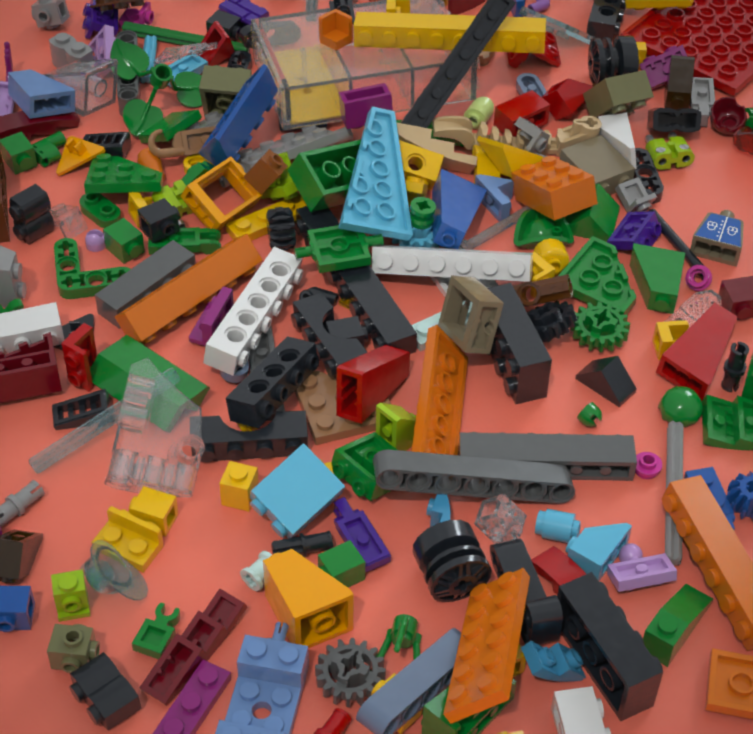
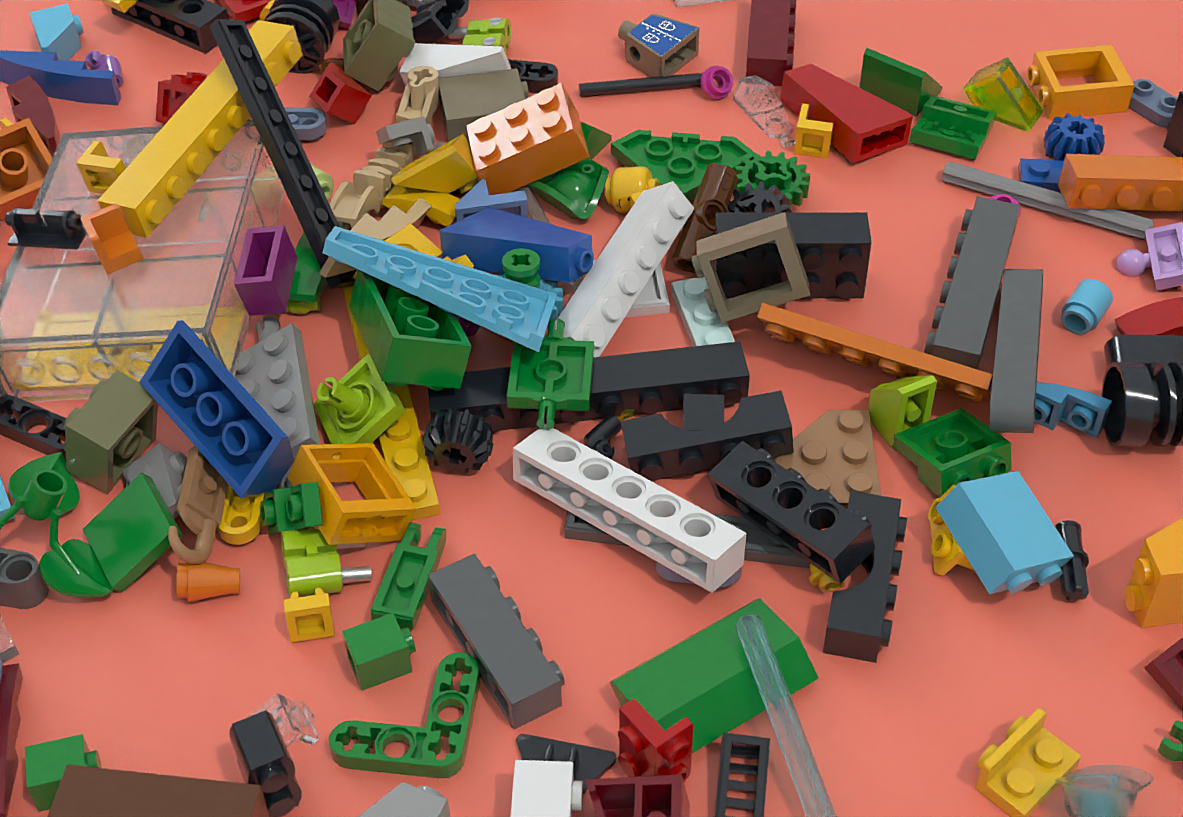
camera: 70 degrees left, 0 degrees up
(47, 149) = (59, 724): green piece -> none
(77, 153) = (111, 683): light orange piece -> none
(95, 240) = (352, 702): lavender hinge -> none
(99, 209) = (270, 677): green plate -> none
(114, 143) = (111, 615): black slope -> none
(121, 175) = (225, 625): green plate -> none
(150, 436) = (868, 673): clear panel -> none
(155, 507) = (982, 717): yellow brick -> none
(159, 220) = (378, 581): black brick -> none
(188, 289) = (542, 584): orange brick -> none
(212, 316) = (613, 565): magenta bracket -> none
(237, 485) = (960, 603): yellow brick -> none
(254, 574) = (1114, 614): light aqua bush -> none
(265, 171) = (349, 415): dark orange brick -> none
(343, 564) = (1121, 524): green brick -> none
(357, 528) = (1079, 493): dark purple hinge -> none
(369, 380) = (829, 403): red slope -> none
(500, 519) = (1065, 345): clear brick -> none
(528, 106) = (344, 139): red brick -> none
(563, 30) = (143, 78): clear light blue wing -> none
(589, 414) = (911, 233): green hinge -> none
(598, 547) = (1133, 278): medium azure slope -> none
(608, 379) = (857, 195): black slope -> none
(634, 196) = (570, 81): light grey bracket -> none
(636, 228) = (616, 107): dark purple bracket -> none
(657, 276) = (705, 109): green slope -> none
(681, 405) = (919, 156): green hair -> none
(735, 367) = (891, 86): black pin -> none

